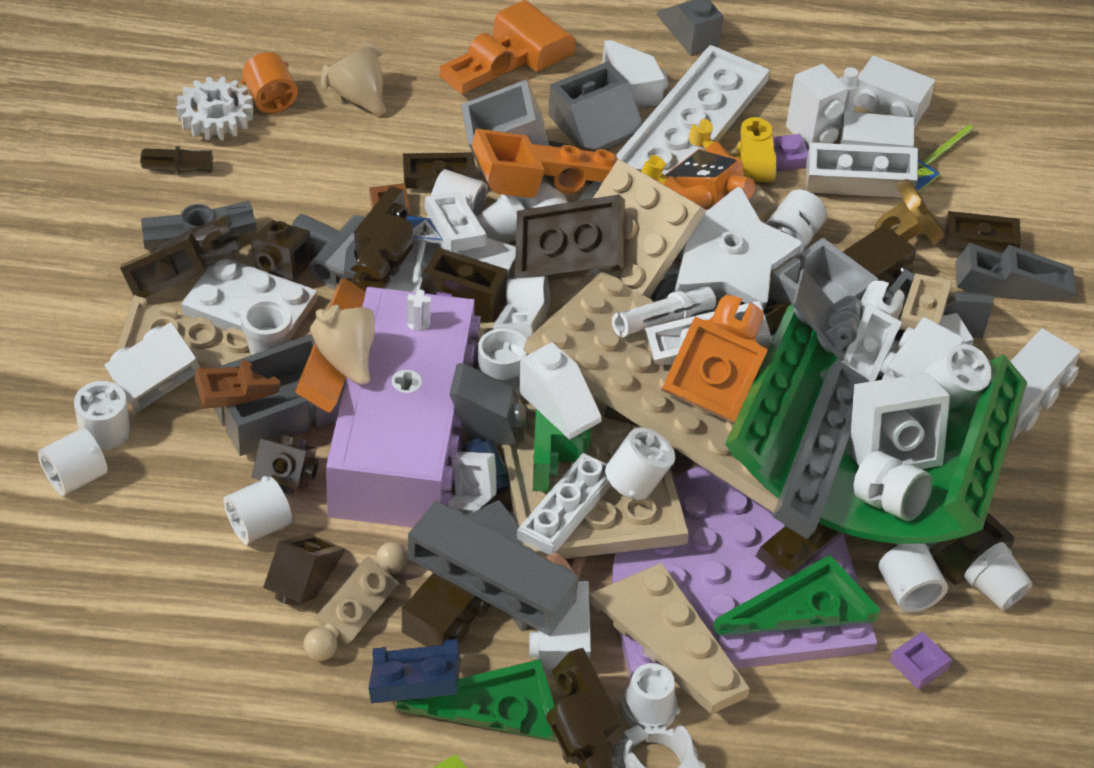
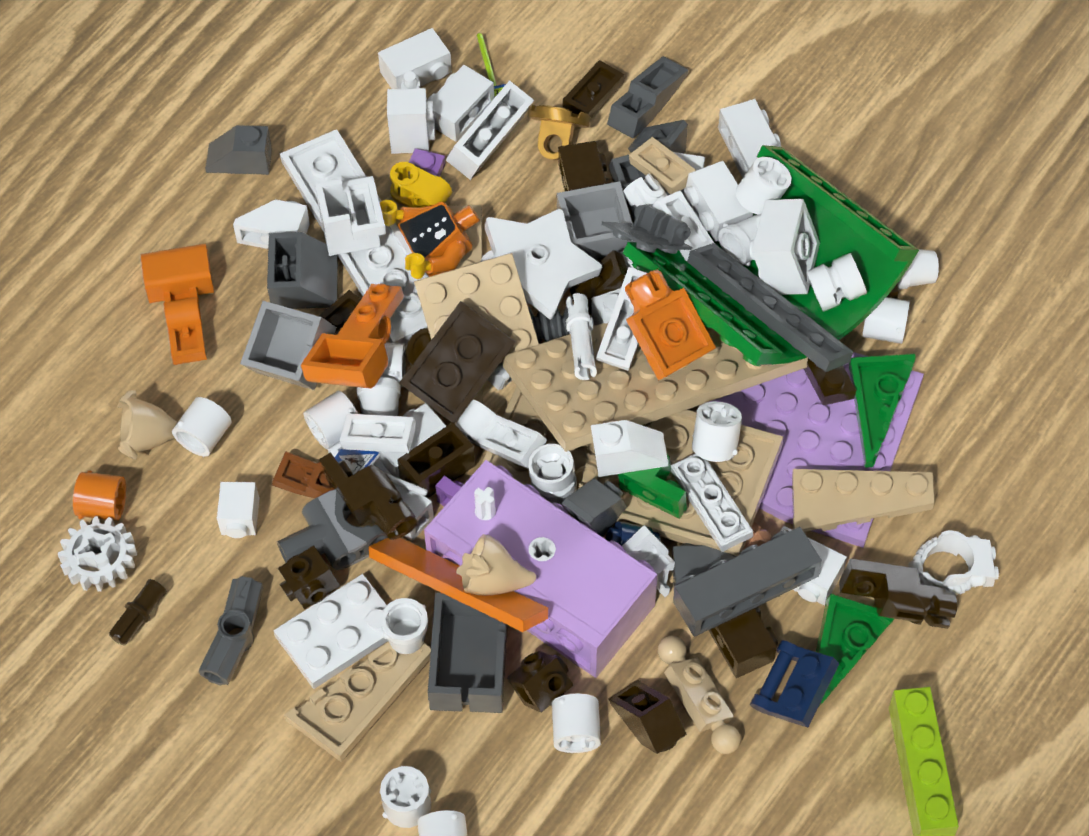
camera: 55 degrees left, 10 degrees up
(152, 366) = (382, 733): white brick -> none
(180, 258) = (270, 657): dark brown plate -> none
(233, 385) = (461, 679): dark orange slope -> none
(322, 177) = (238, 509): none -> white brick
(385, 115) = (201, 426): none -> white piece
(423, 169) = (284, 419): dark brown plate -> none
(650, 697) = (895, 541): white piece -> none
(670, 101) = (350, 214): none -> white plate
(799, 216) = (510, 199): white wheel -> none
(920, 660) = (952, 356): medium lavender plate -> none

